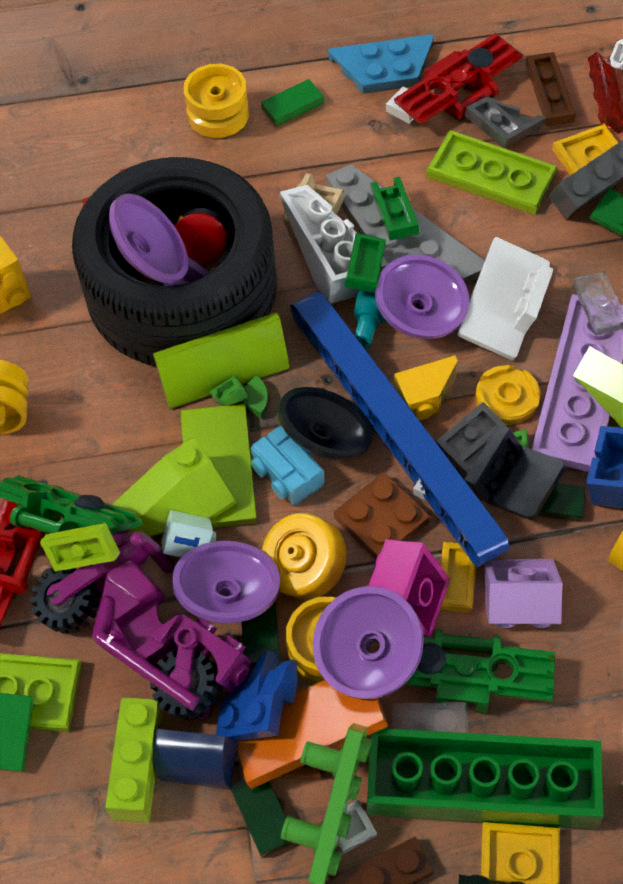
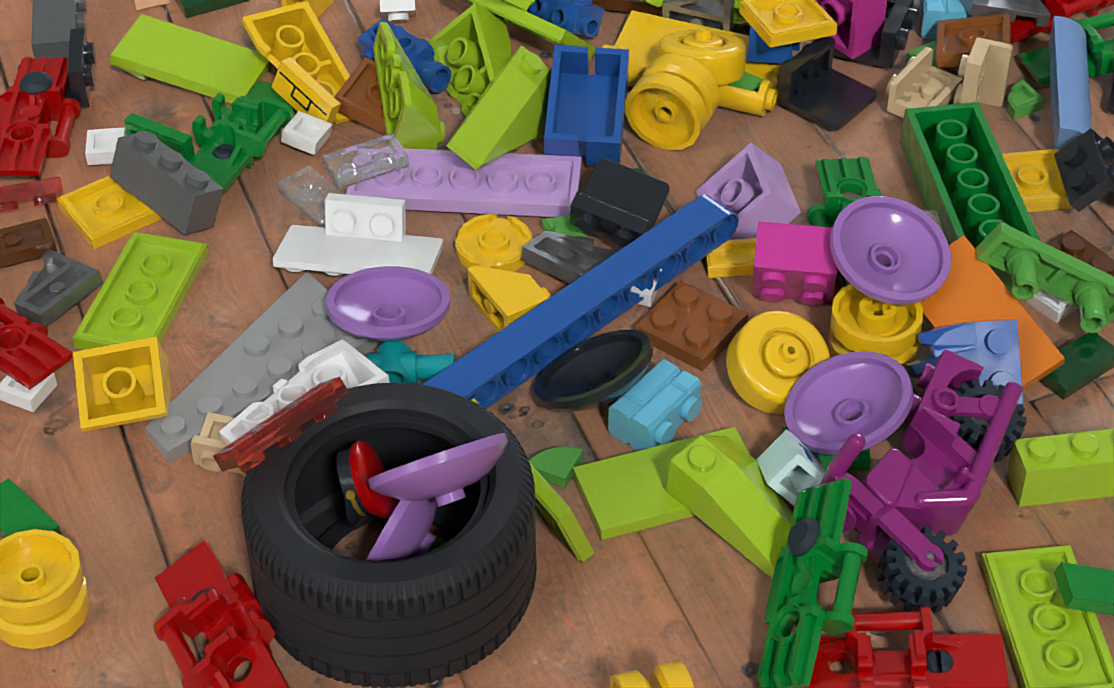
camera: 105 degrees left, 15 degrees down
(80, 547) = (879, 531): lime plate -> none
(194, 758) = (1050, 400): dark blue brick -> none
(222, 166) = (282, 426): none -> clear red plate
(229, 392) = (564, 477): bright green tile -> none
(365, 262) = (351, 350): green tile -> none
(381, 148) = (122, 384): none -> yellow slope
(395, 210) = (235, 355): green hinge -> none
(562, 281) = (307, 192): none -> clear plate

